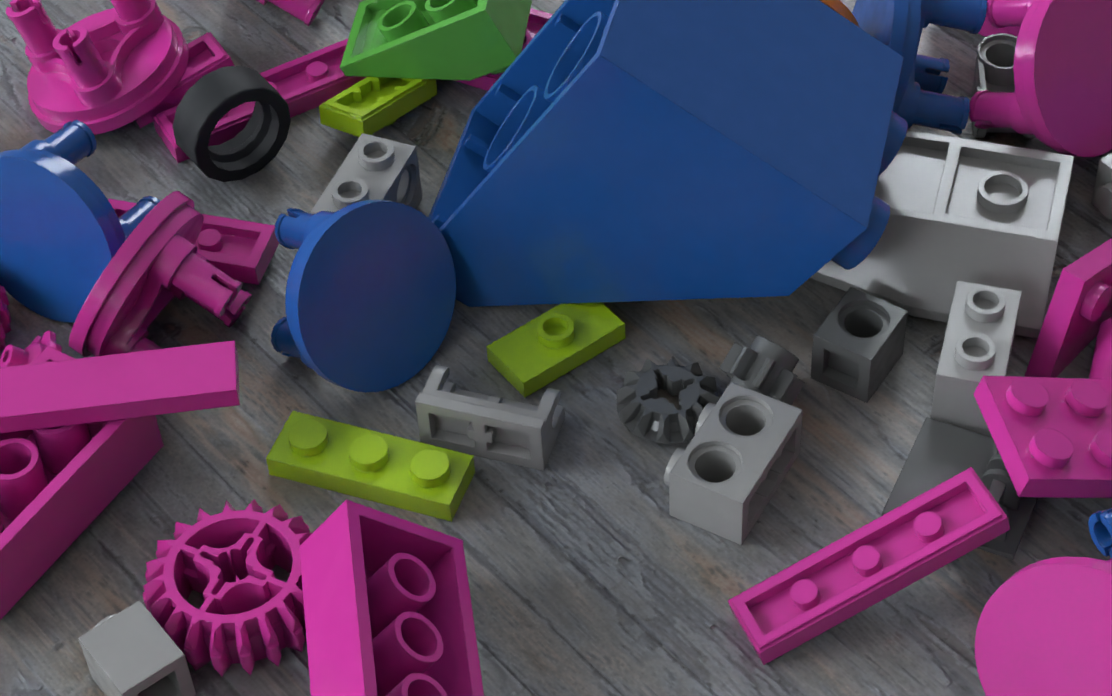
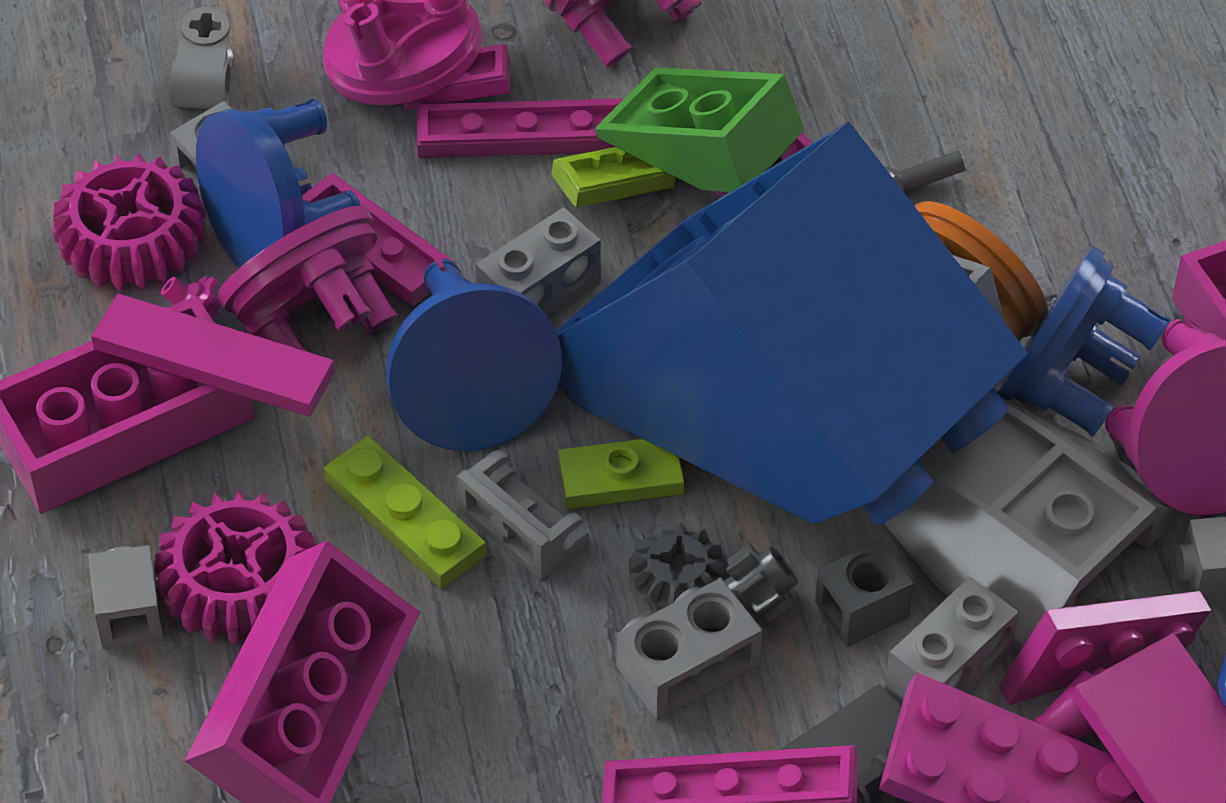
camera: 25 degrees right, 5 degrees up
(213, 98) = (462, 119): black tyre -> none

